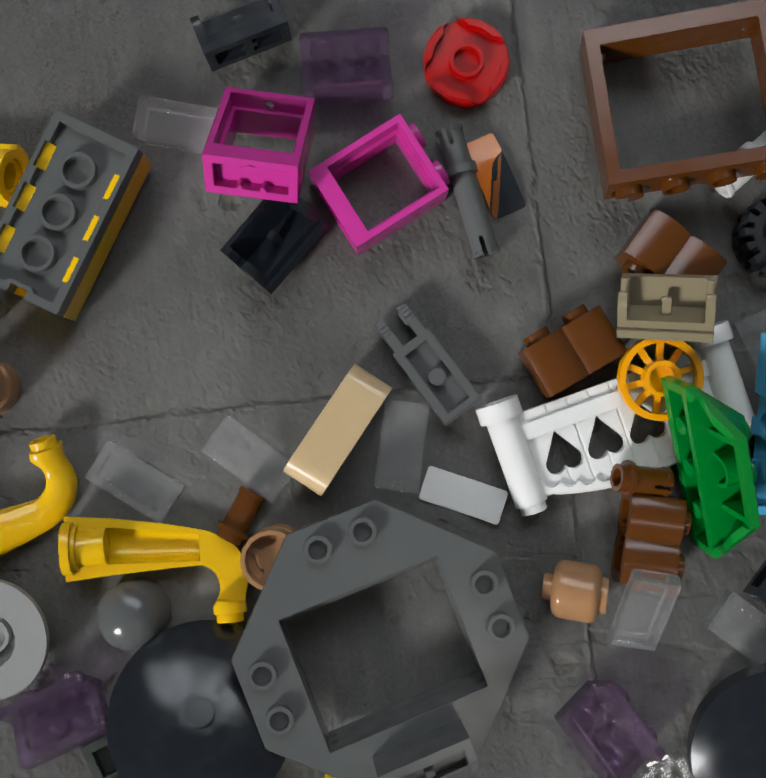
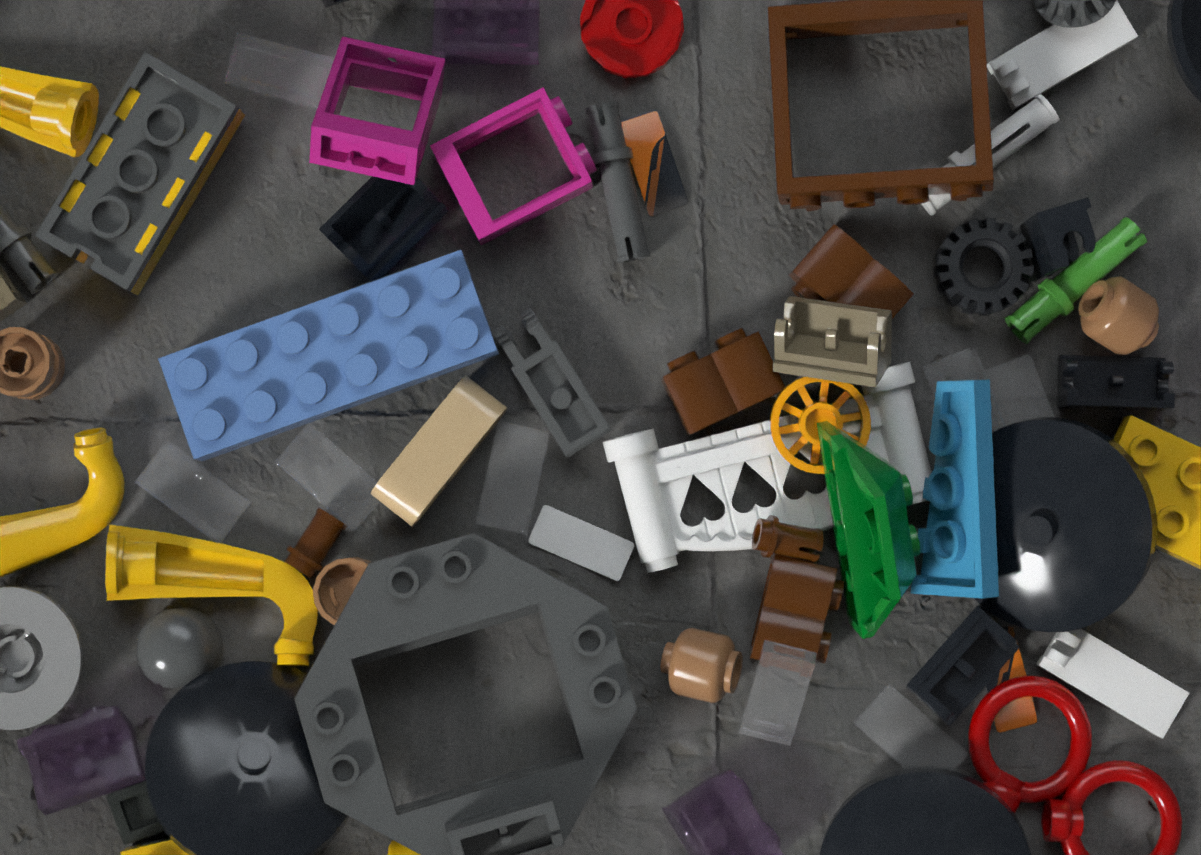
camera: 15 degrees right, 0 degrees up
(236, 357) = (328, 356): none -> medium blue brick

